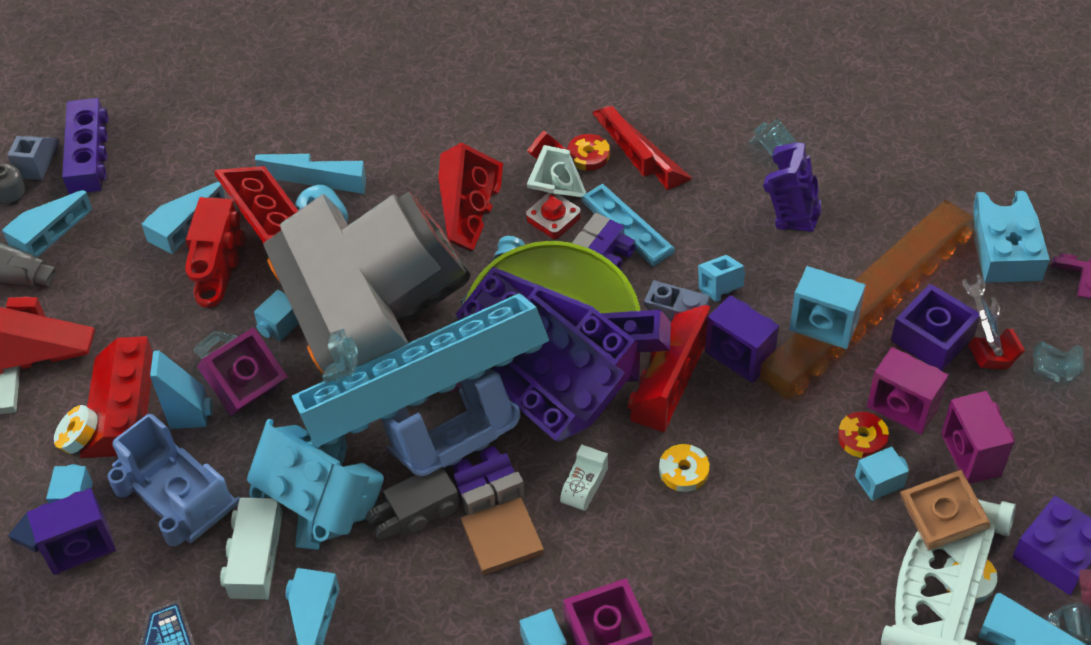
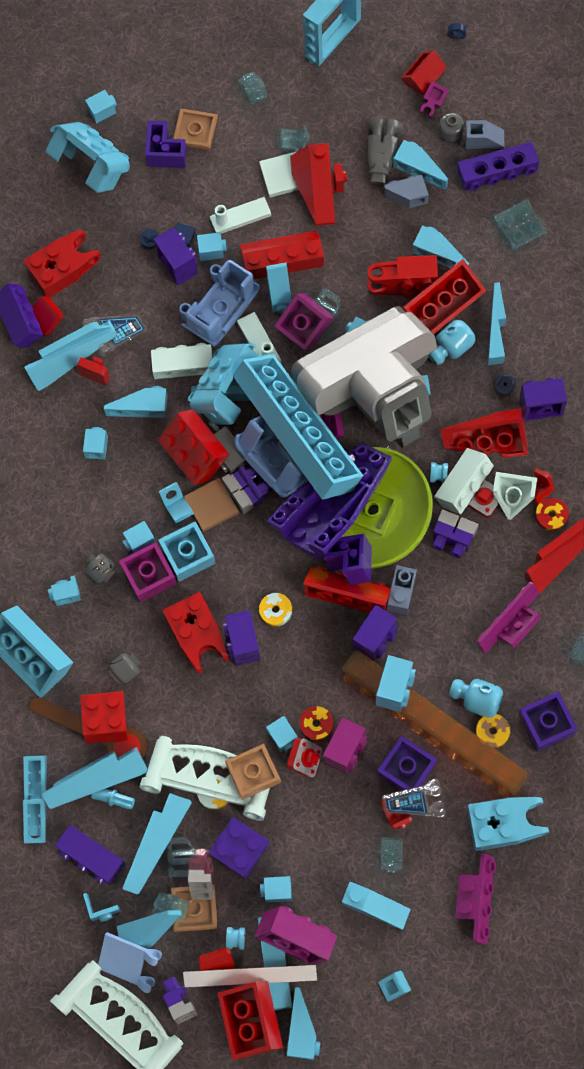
camera: 85 degrees right, 20 degrees up
(20, 580) = (147, 238): none -> dark blue tile
(31, 450) = (239, 216): none -> light aqua piece
(75, 429) = (254, 236): piece -> none
(81, 241) = (407, 192): none -> sand blue slope
(175, 138) = (519, 224): none -> clear light blue slope
(241, 447) = (256, 335): none -> light aqua piece
(344, 354) = (291, 374): clear light blue bracket -> none
(398, 174) = (505, 384): none -> dark blue tile
(409, 536) = (193, 447): none -> red brick
(432, 128) = (543, 398): none -> dark purple brick
(498, 580) = (176, 506): none -> medium azure bracket
(527, 221) = (464, 481): none -> light aqua brick
(578, 561) = (187, 551): none -> medium azure brick
(584, 477) = (256, 547): light aqua leg -> none
(647, 241) = (483, 550): medium azure tile -> none
(712, 570) = (198, 637): none -> red brick
(720, 276) = (437, 619): medium azure brick -> none
(733, 500) = (243, 642): none -> dark purple brick
(736, 198) = (513, 622): none -> magenta bracket
(793, 189) = (517, 668): dark purple piece -> none
(836, 241) = (478, 697): none -> medium azure piece
(873, 232) = (497, 722): none -> yellow piece
(874, 178) = (547, 721): none -> dark purple brick
(921, 443) = (304, 757): none -> piece
(977, 437) = (311, 793): magenta brick -> none

